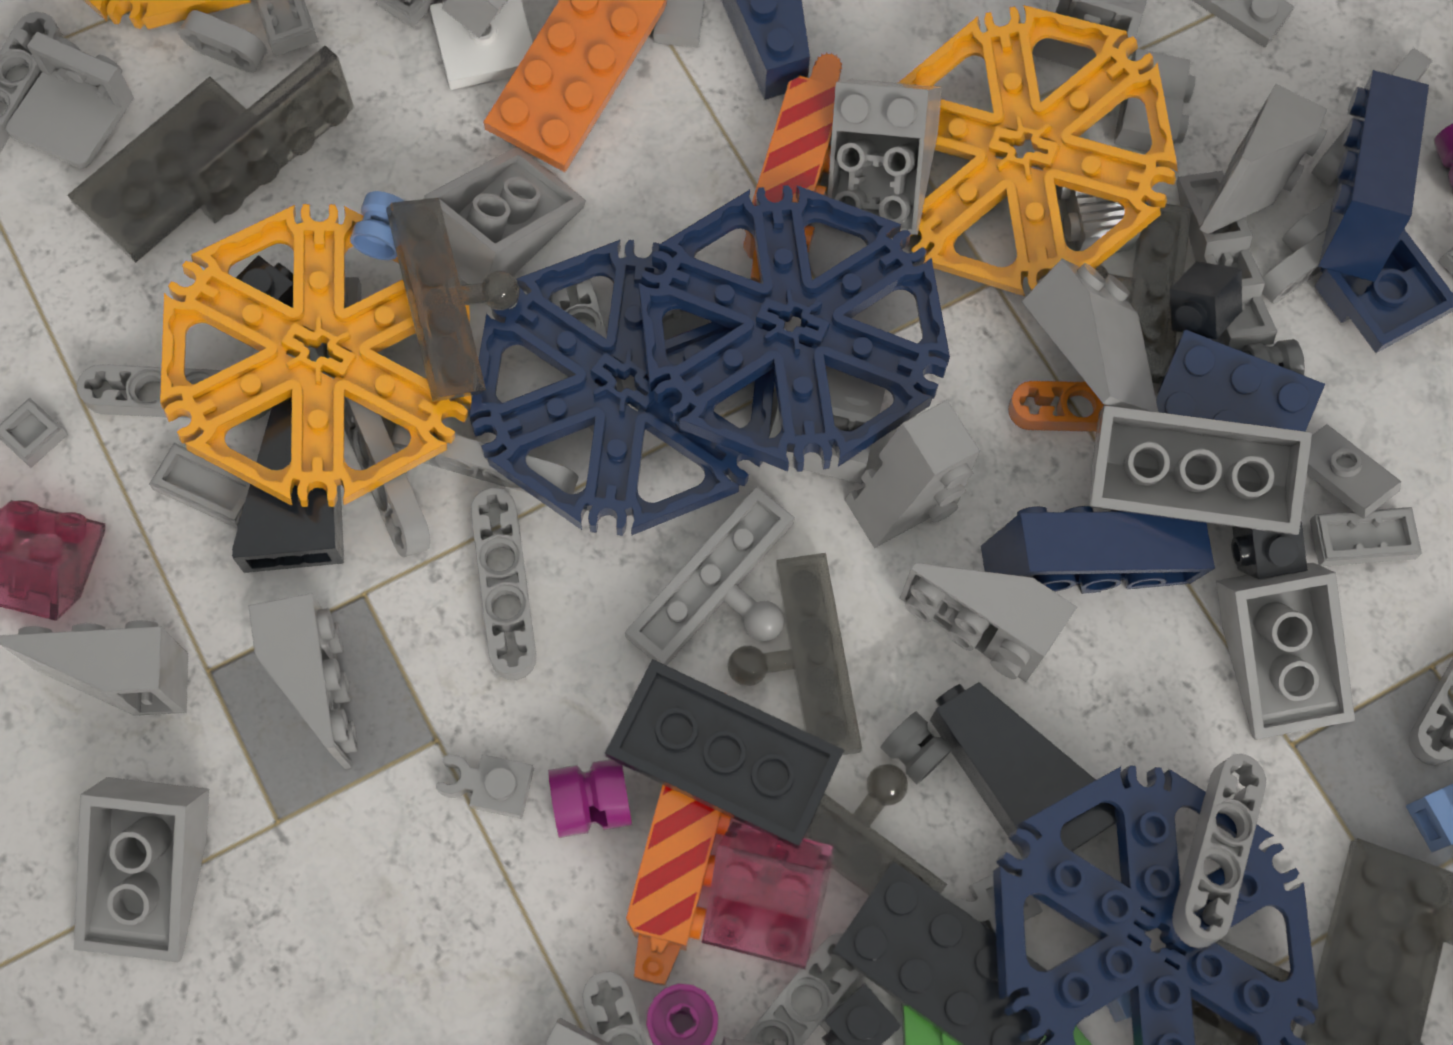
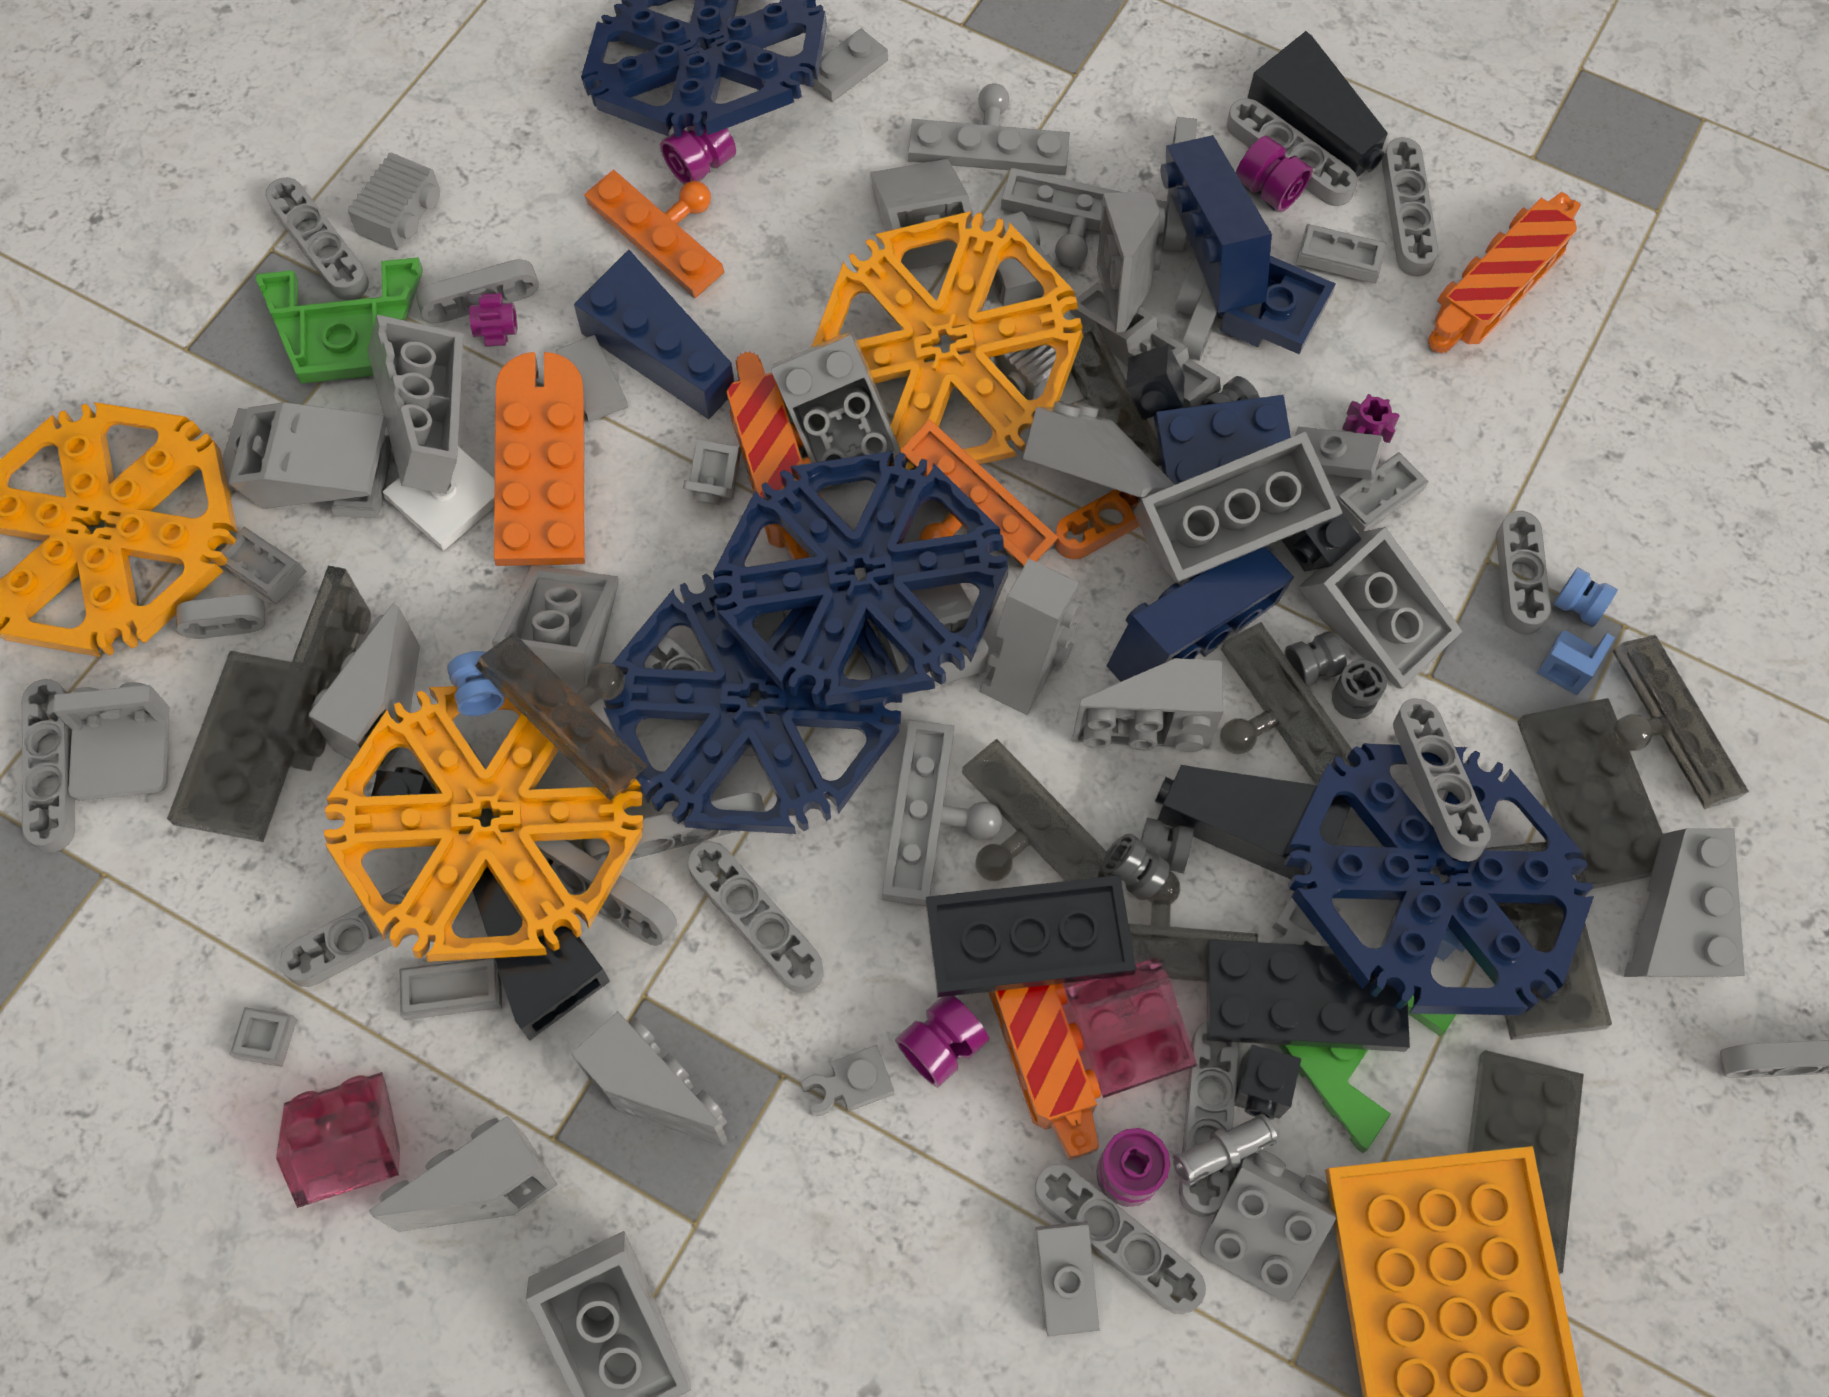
camera: 30 degrees left, 5 degrees down
(304, 169) = (368, 685): none -> light grey slope
(731, 151) = (713, 471): none -> light grey bracket
(869, 750) = (1140, 870): none -> dark grey wheel
(964, 313) = (1021, 530): none -> orange plate
(1126, 685) = (1285, 703): none -> clear smoke plate
(1187, 660) = (1317, 658): none -> dark grey wheel
(1199, 721) = (1350, 695): none -> dark grey wheel
(1243, 76) = (1060, 202): none -> light grey plate
(1413, 452) = (1371, 417): none -> magenta gear

